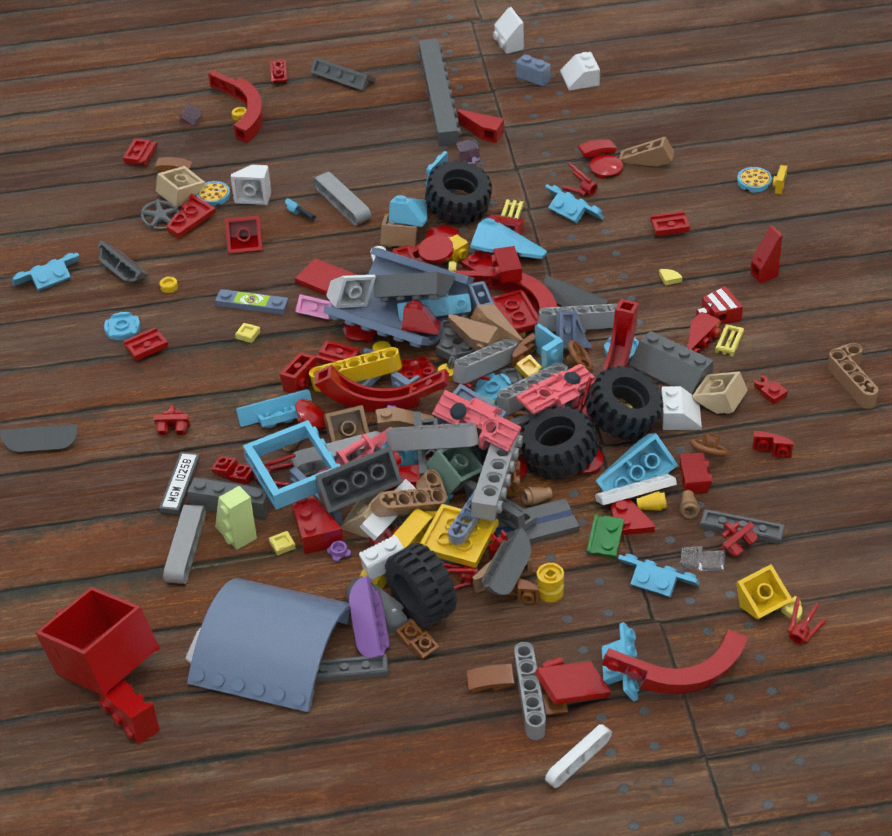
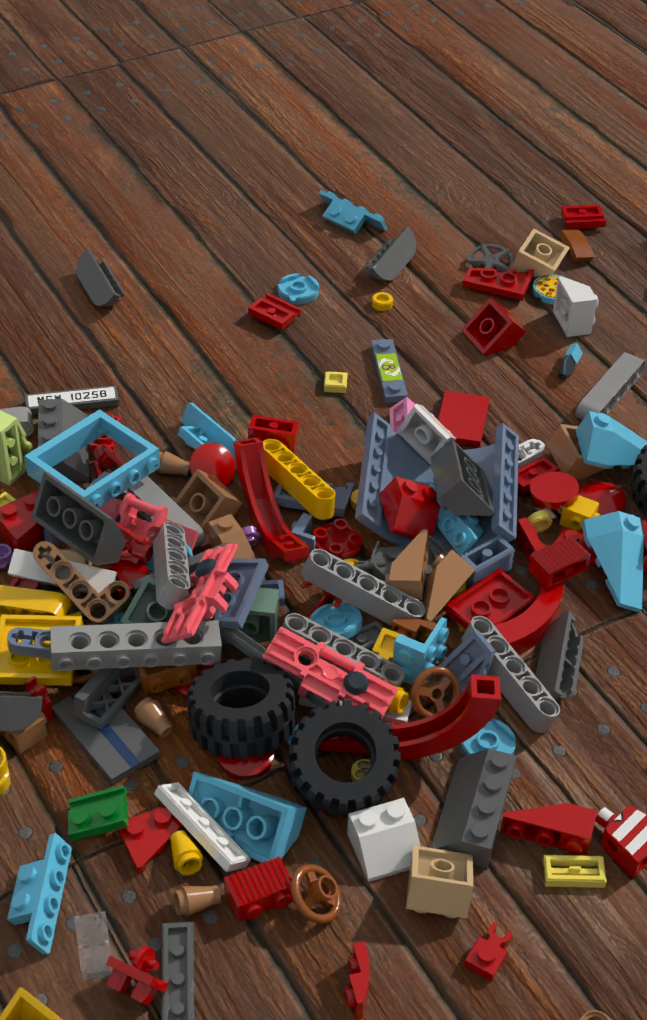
camera: 65 degrees right, 0 degrees up
(172, 418) = (157, 365): red hips -> none
(335, 352) = (330, 462): red plate -> none

